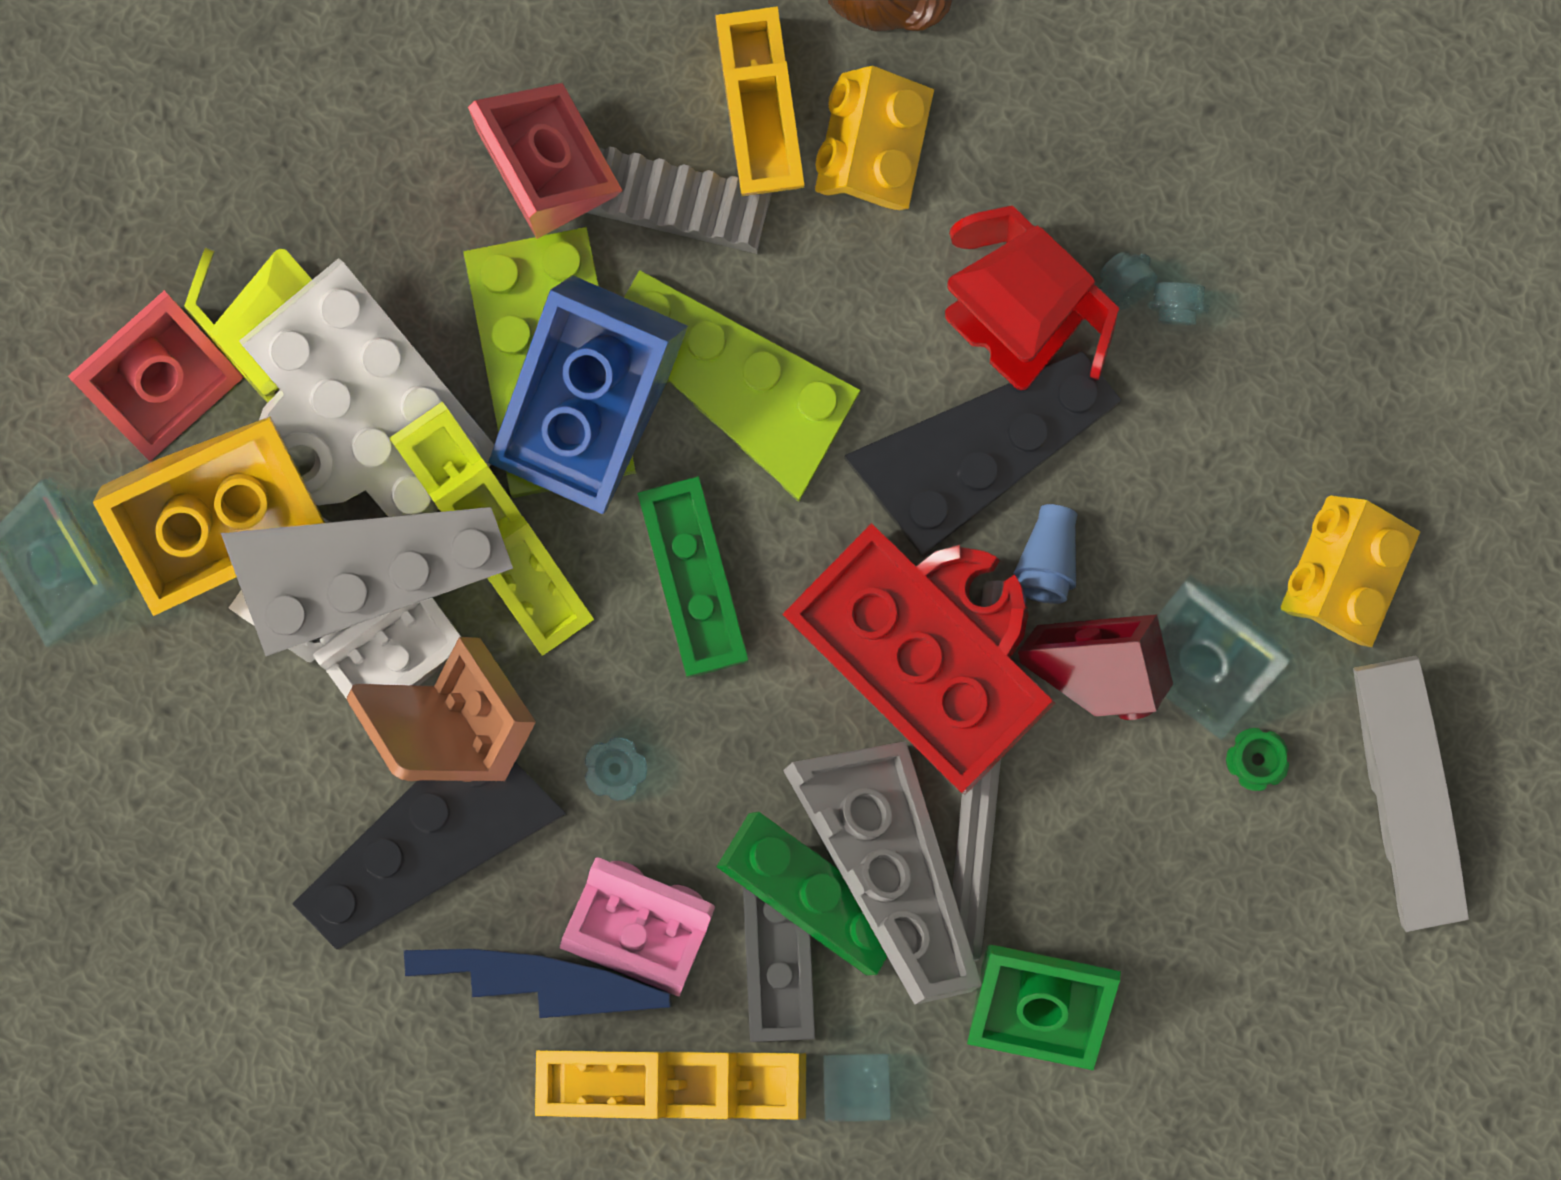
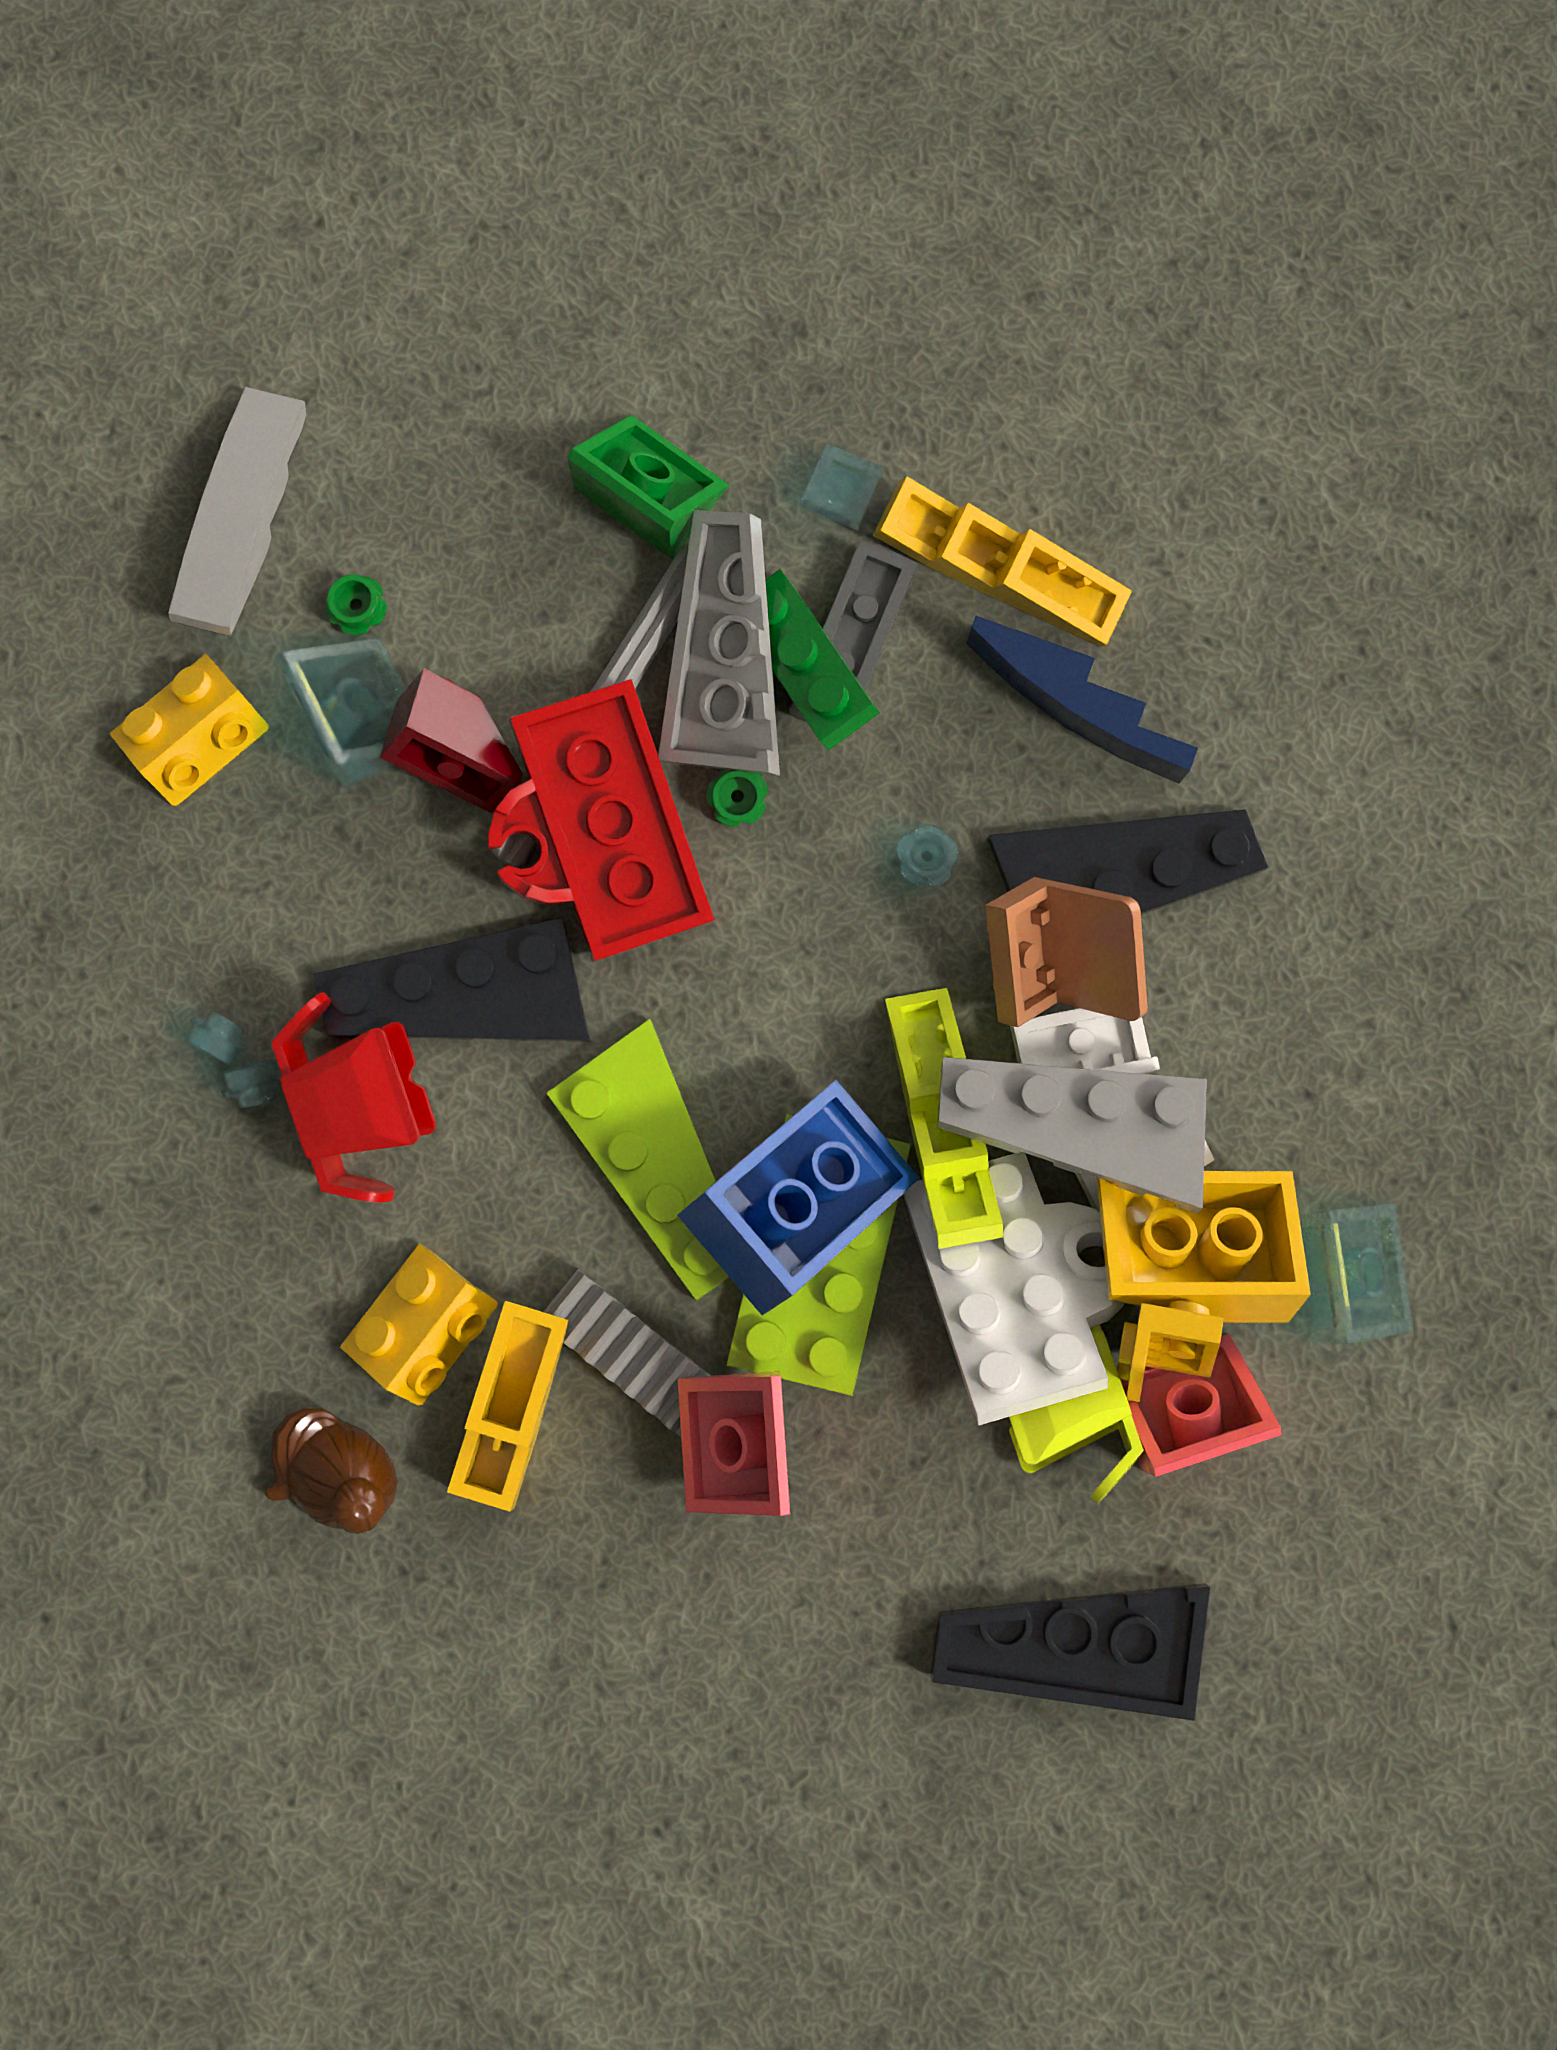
camera: 160 degrees left, 0 degrees up
(157, 131) = (1092, 1650): none -> black wing
(194, 419) = (1169, 1339): none -> yellow bracket
(638, 925) = (970, 705): bright pink bracket -> none
(693, 577) = (779, 992): green plate -> none
(811, 726) = (733, 813): none -> green plate
(1049, 556) = (449, 862): medium blue cone -> none

